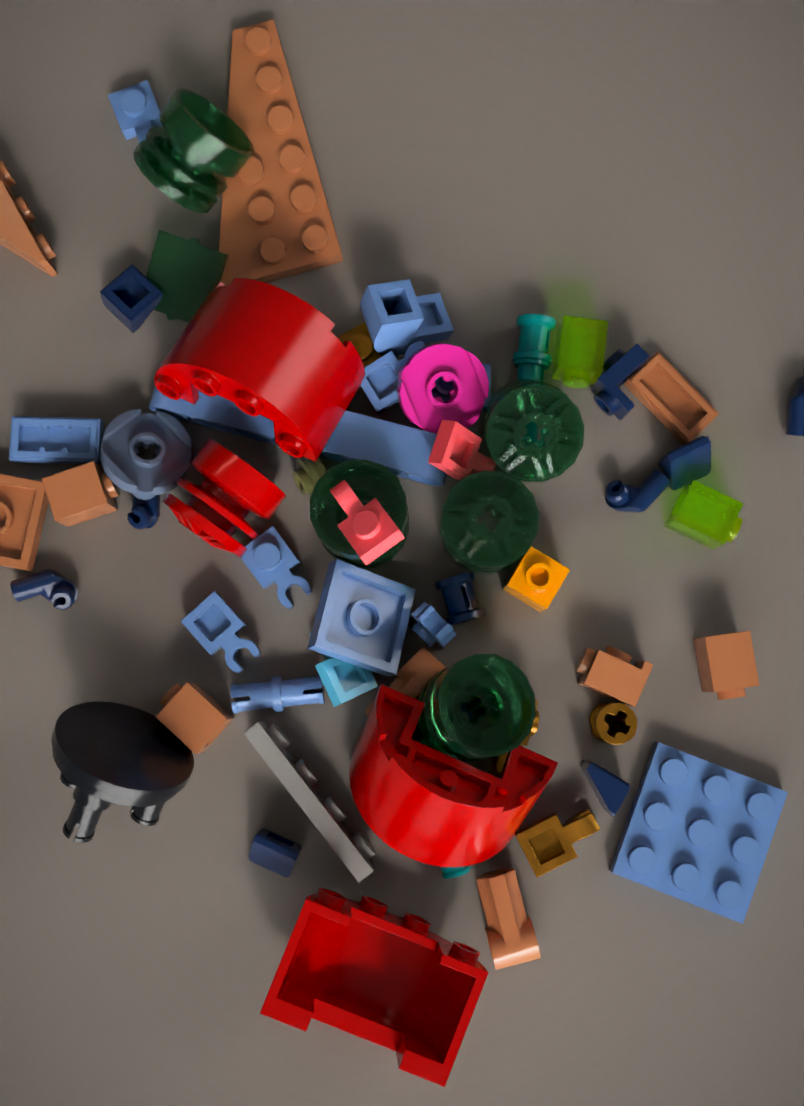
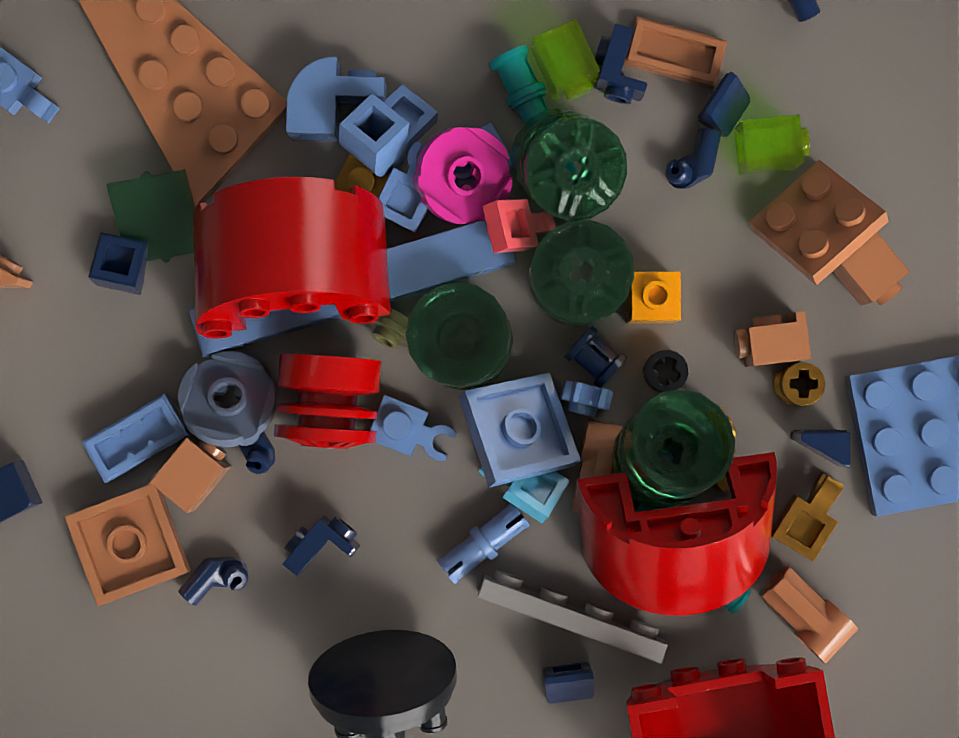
camera: 30 degrees left, 5 degrees up
(136, 607) = (307, 544): none -> dark blue bracket
(193, 151) = (94, 93): clear green wheel -> none
(193, 716) = (421, 609): nougat brick -> none
(217, 627) = (391, 517): medium blue plate -> none
(367, 526) = (477, 347): coral plate -> none
(370, 260) = (317, 98): none -> medium blue brick
(523, 650) = (679, 366): none -> black bush
(707, 600) = (818, 222): none -> nougat plate

